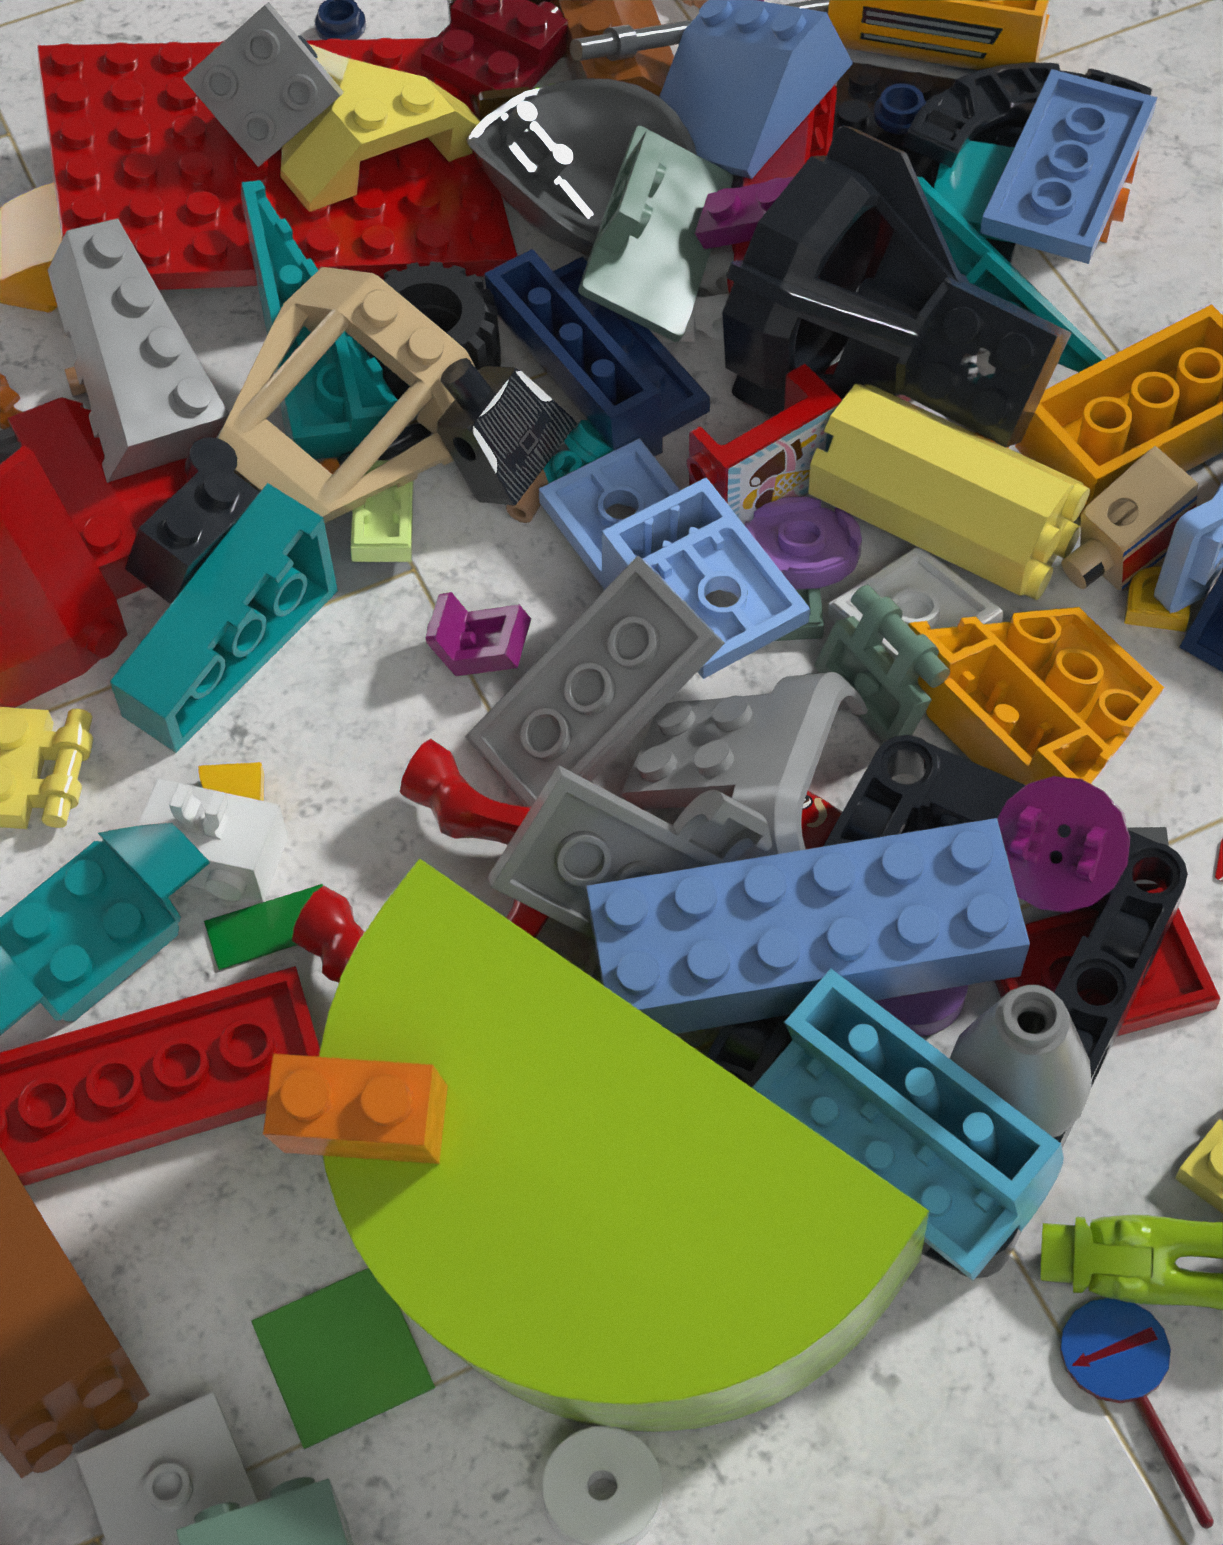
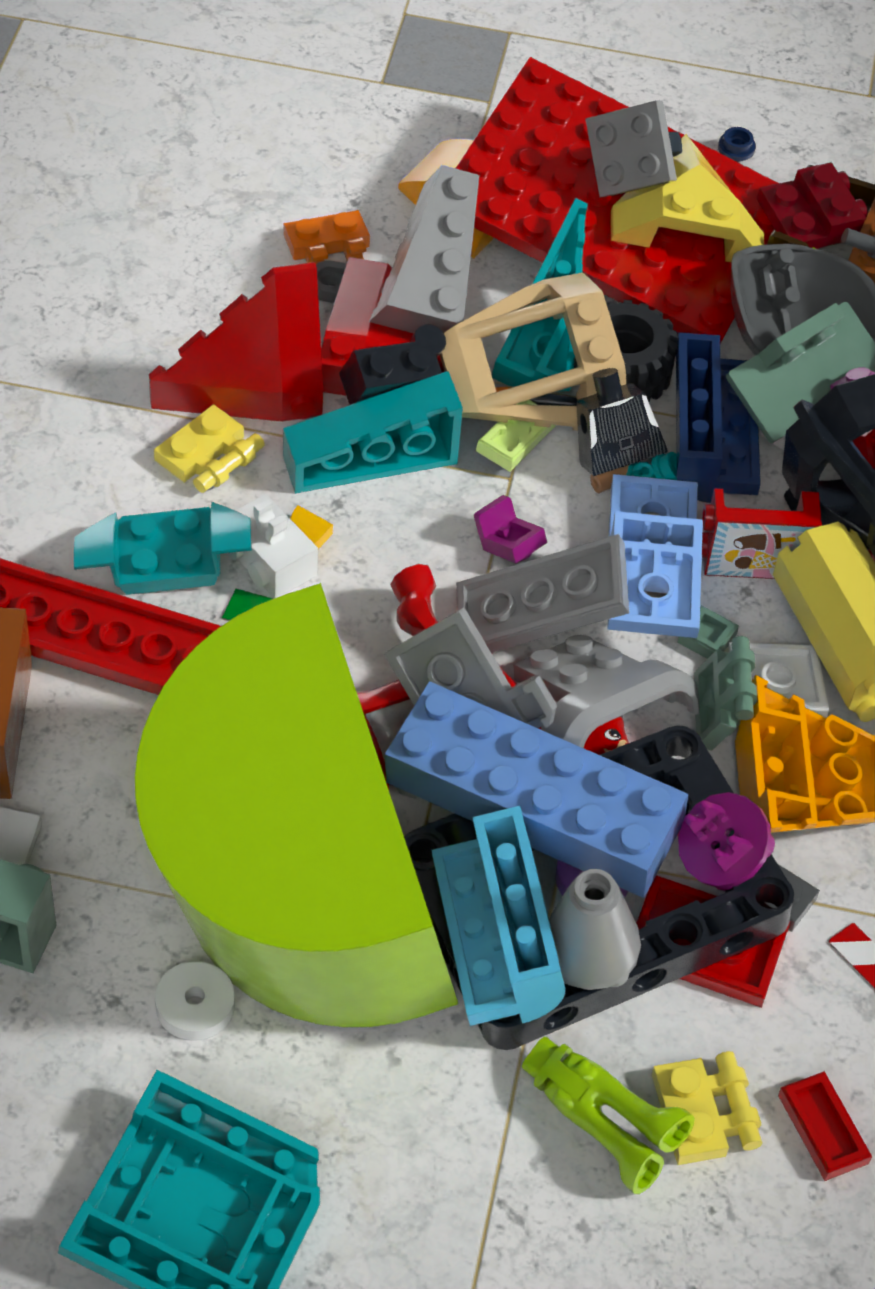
camera: 30 degrees right, 5 degrees down
(341, 1356) = (113, 850): bright green piece -> none
(356, 1108) = (185, 680): orange brick -> none
(807, 541) = (745, 601): medium lavender tile -> none
(1122, 1357) = (533, 1136): blue piece -> none

